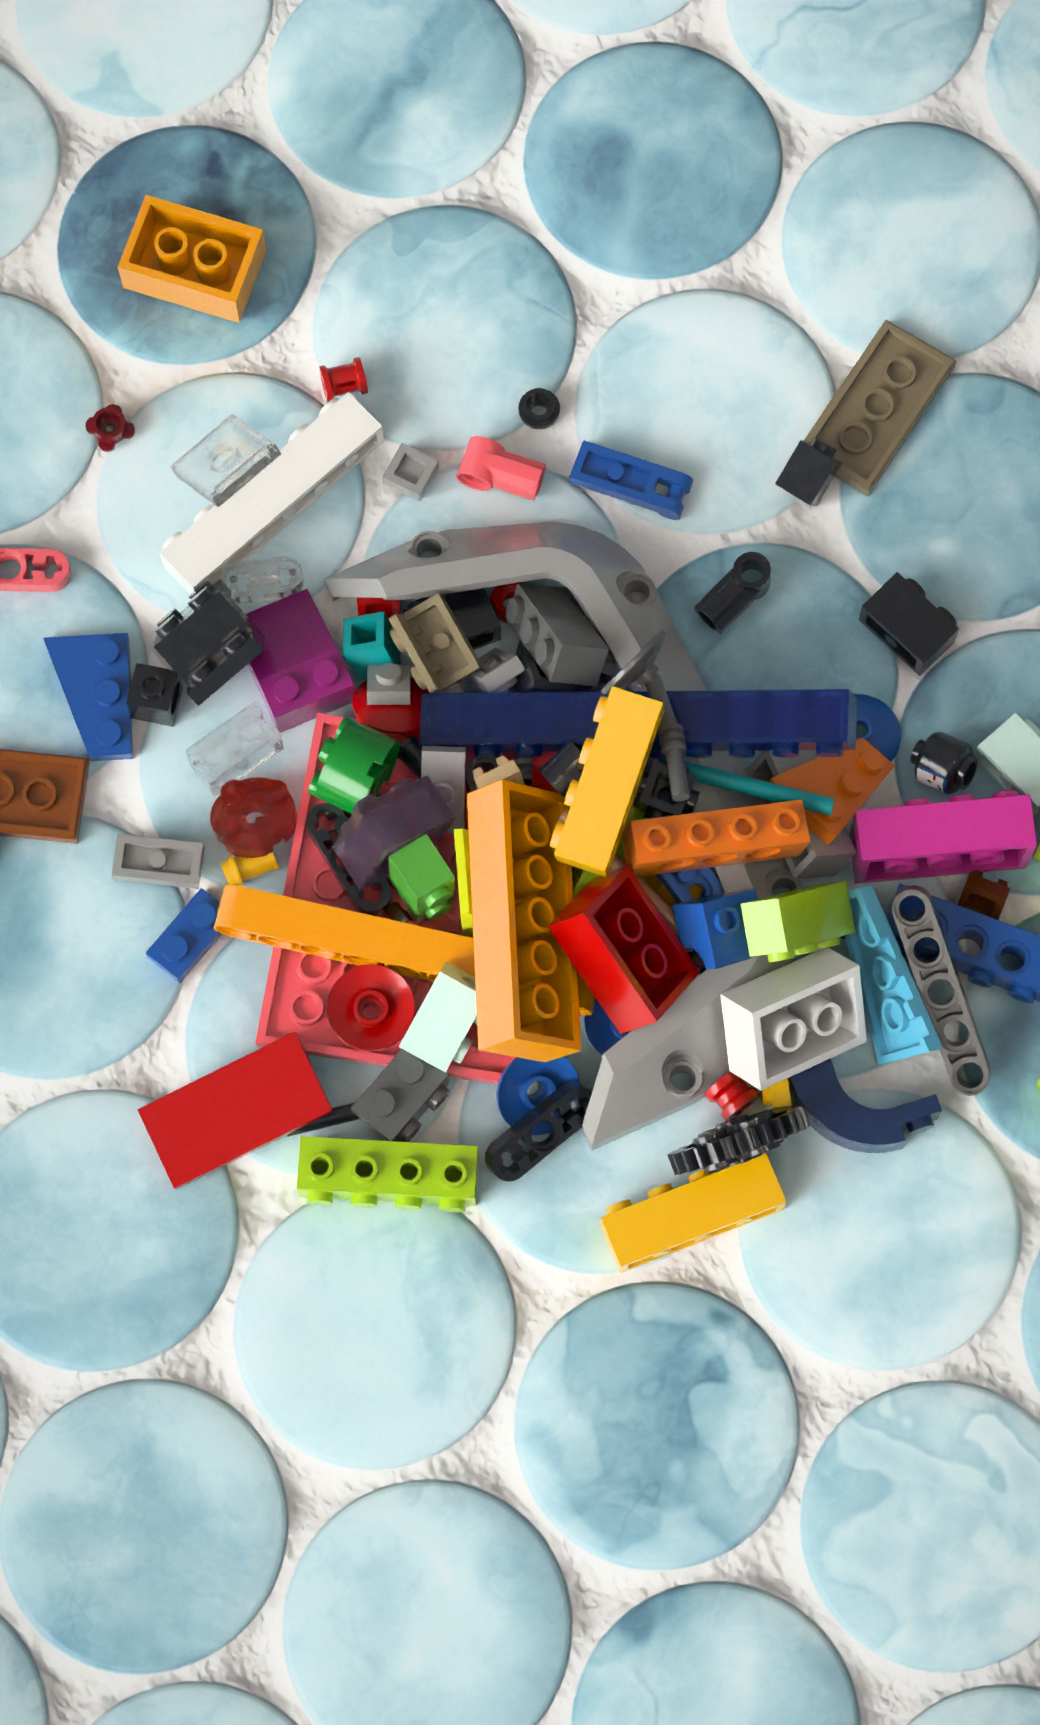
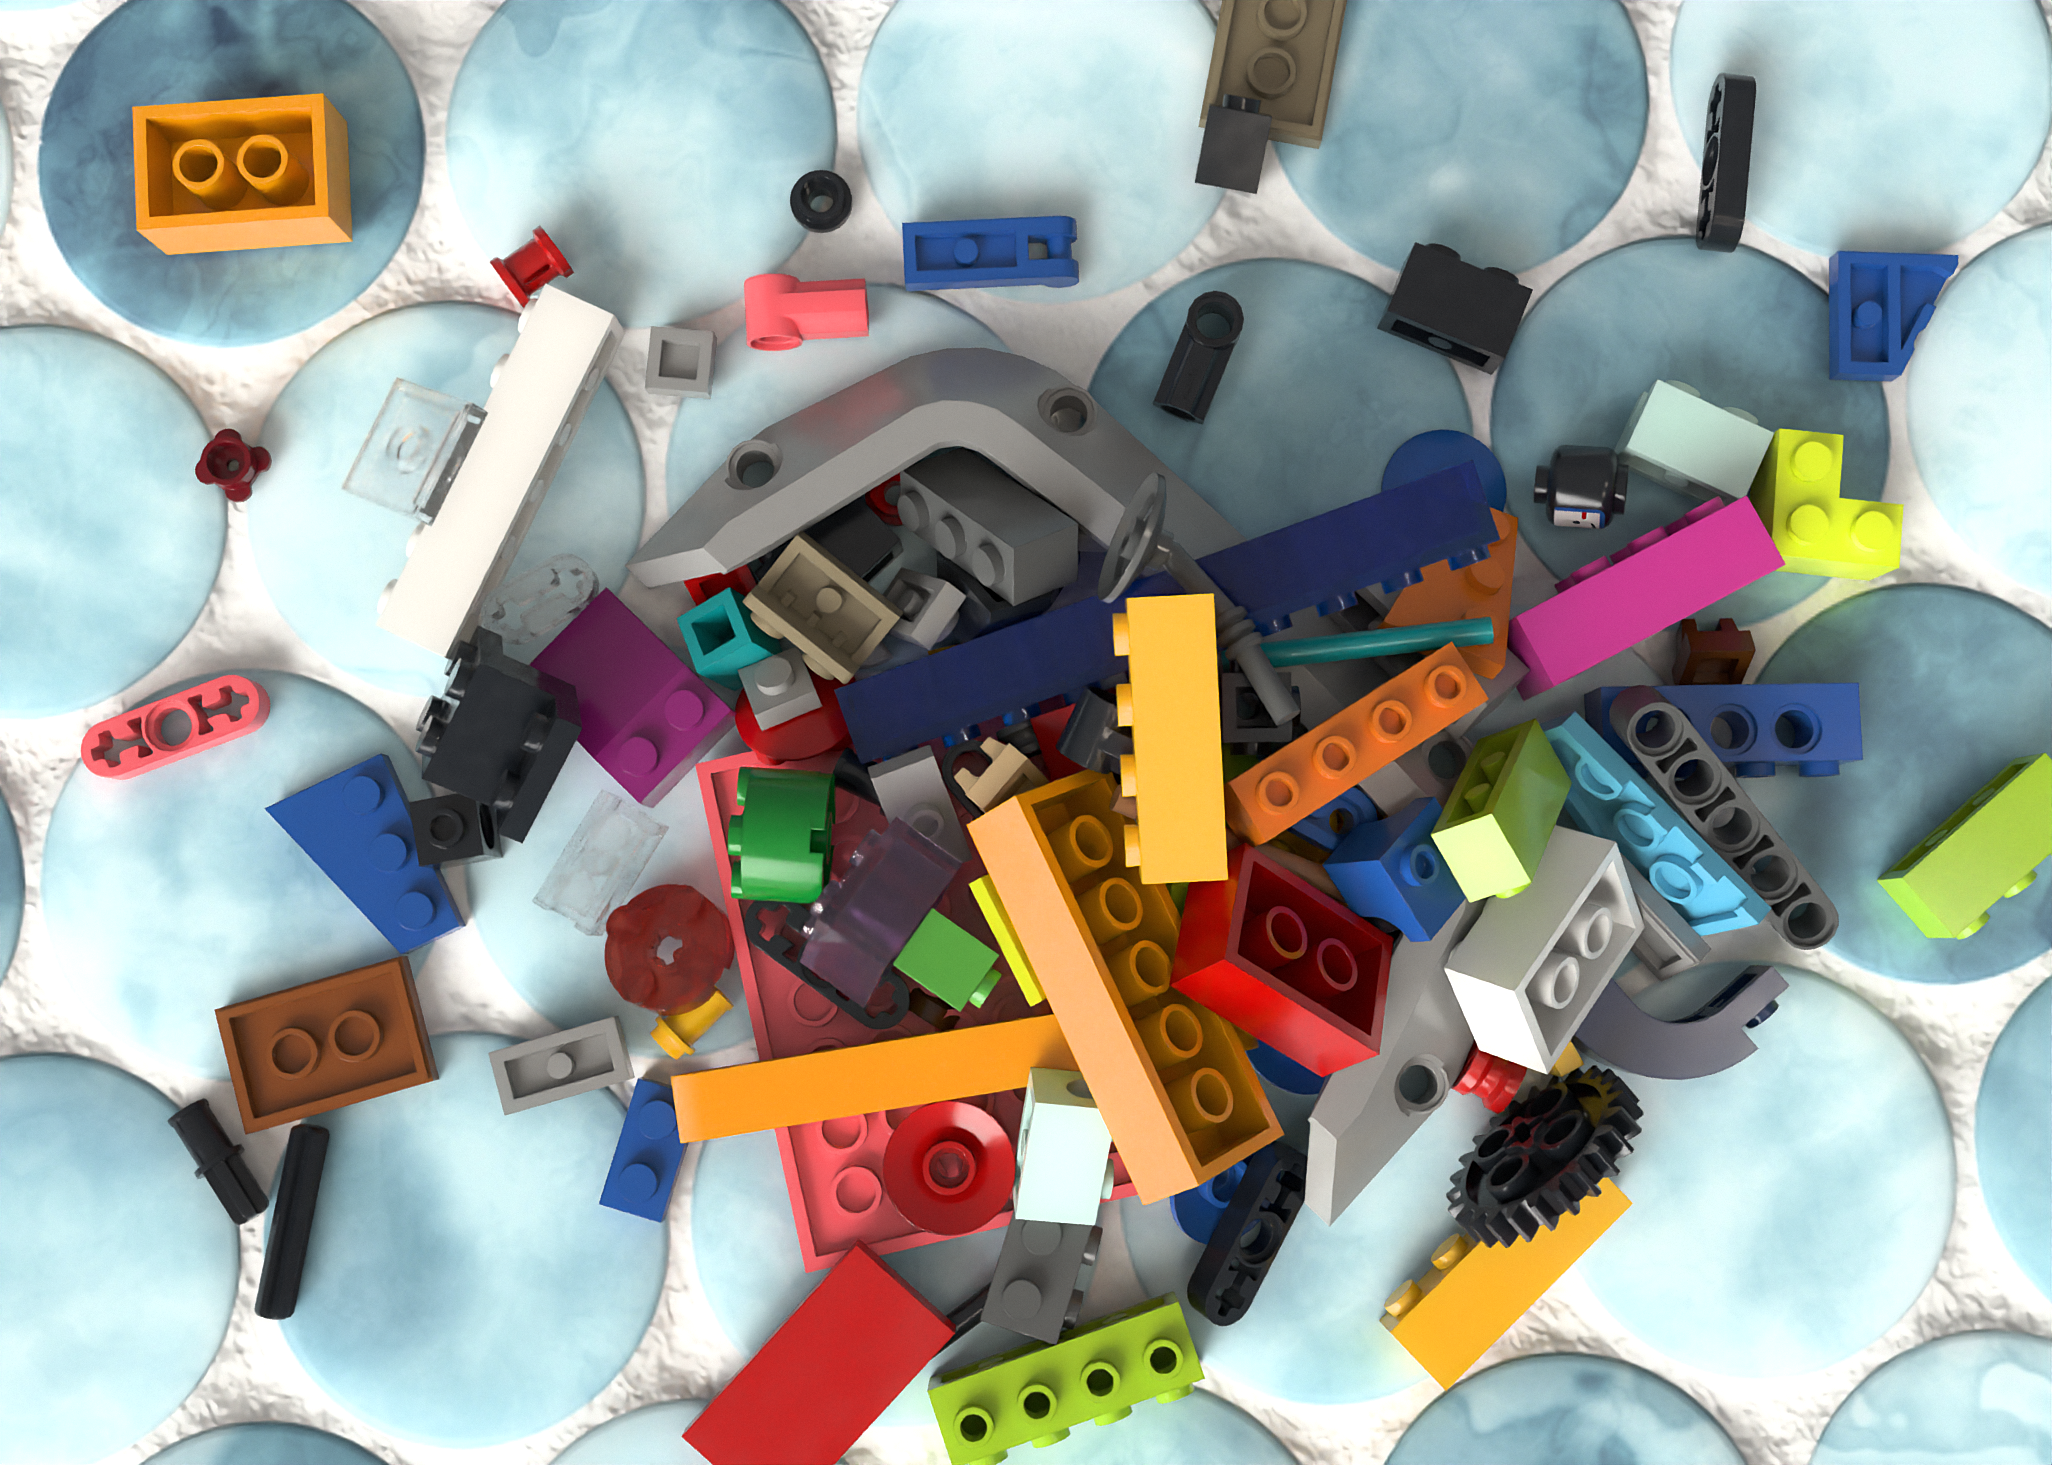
camera: 25 degrees left, 10 degrees up
(877, 1055) = (1667, 941): none -> light grey tile

